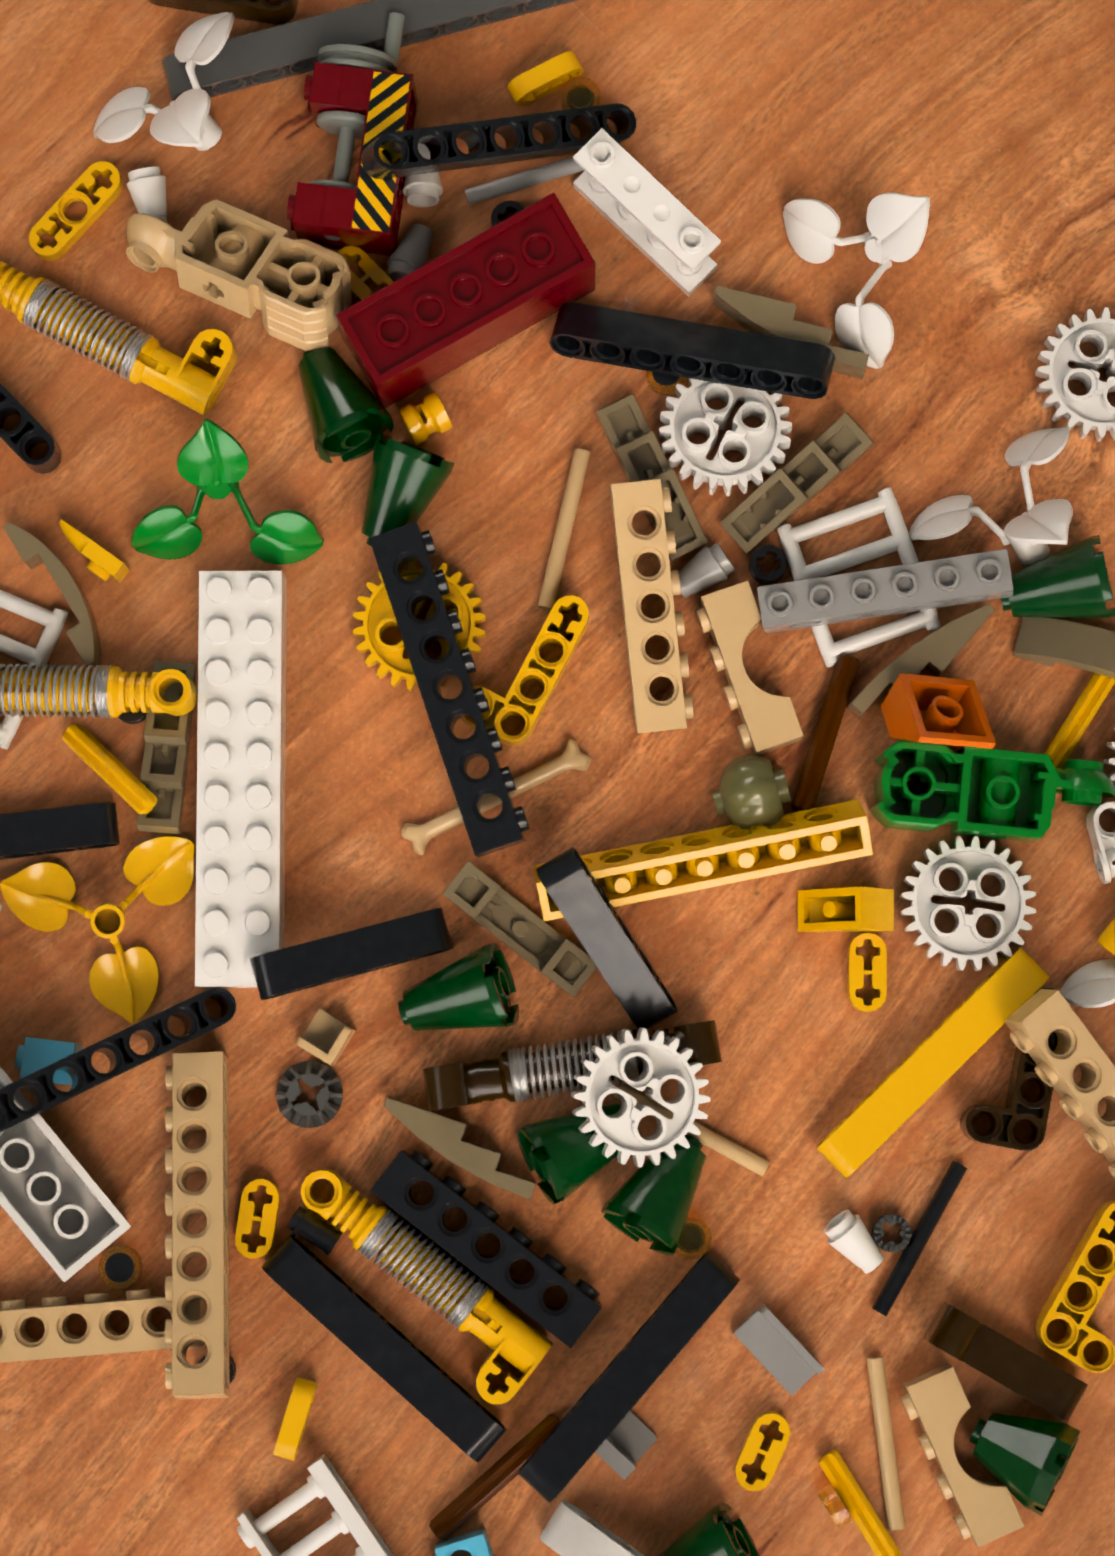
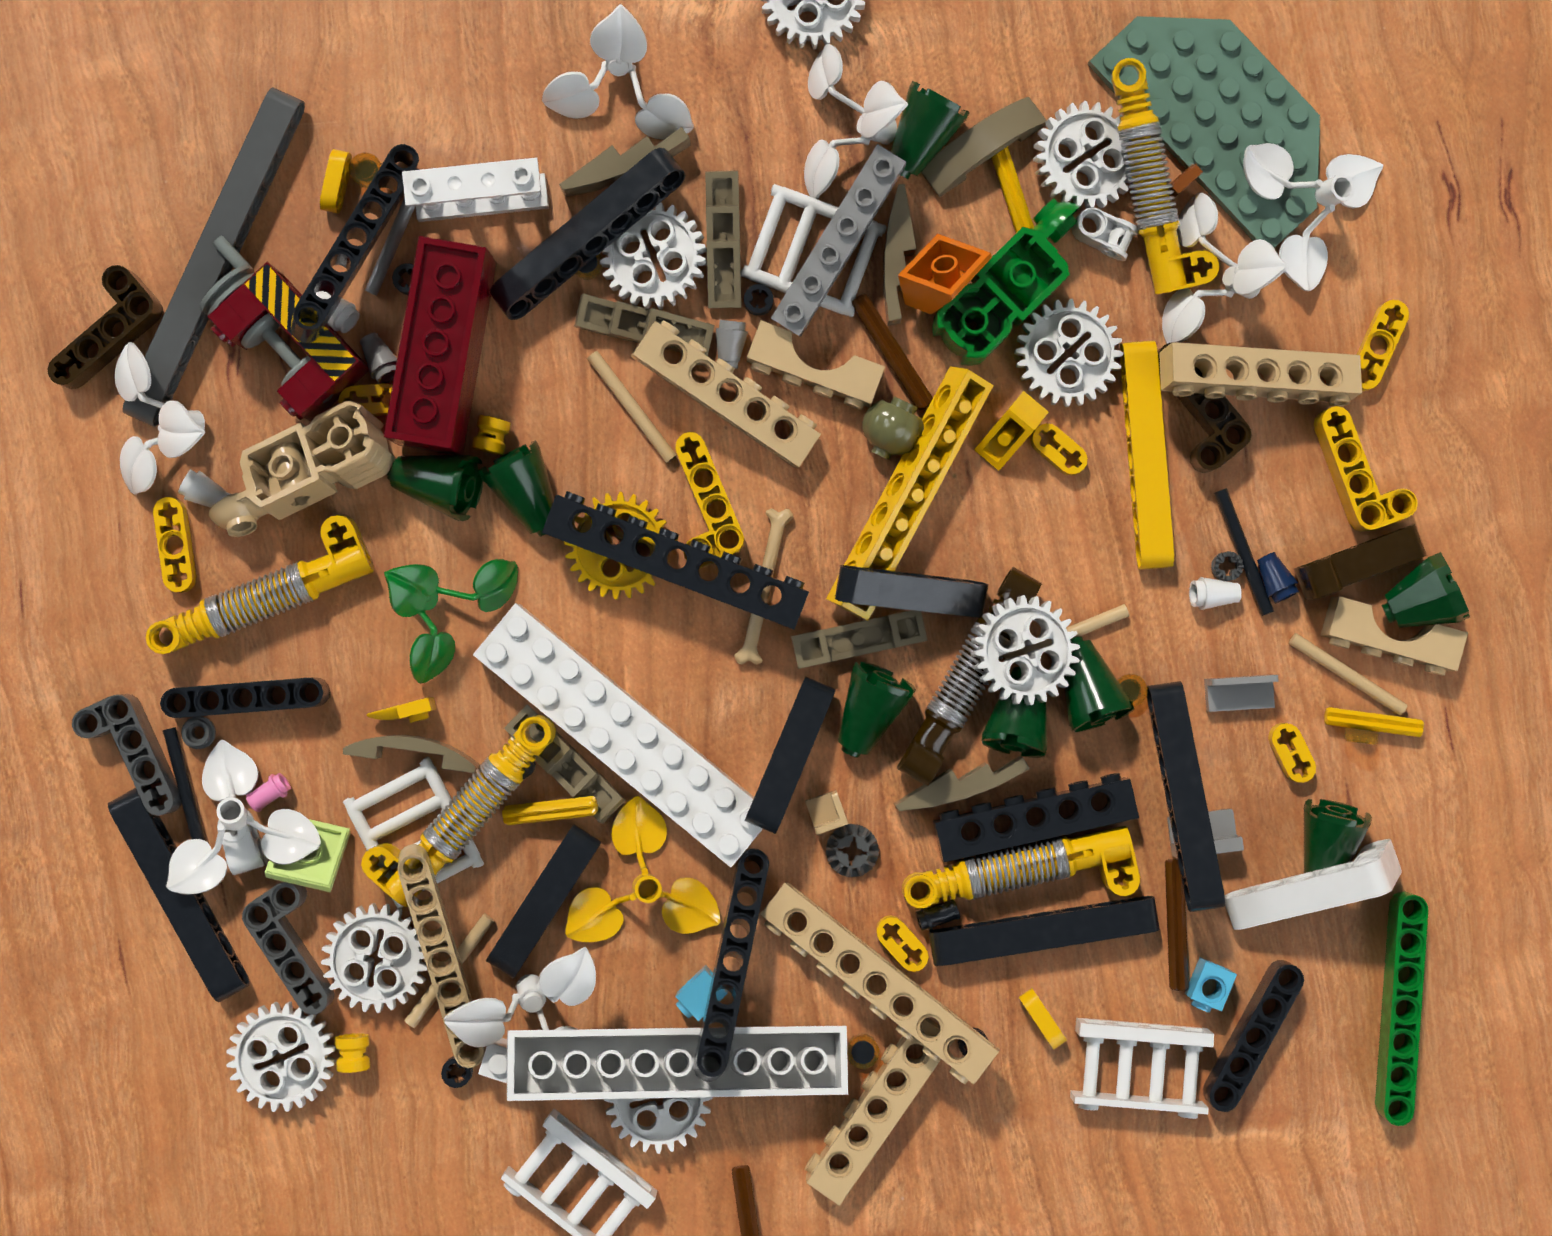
camera: 55 degrees left, 5 degrees up
(920, 1292) = (1277, 578): none -> dark blue cone

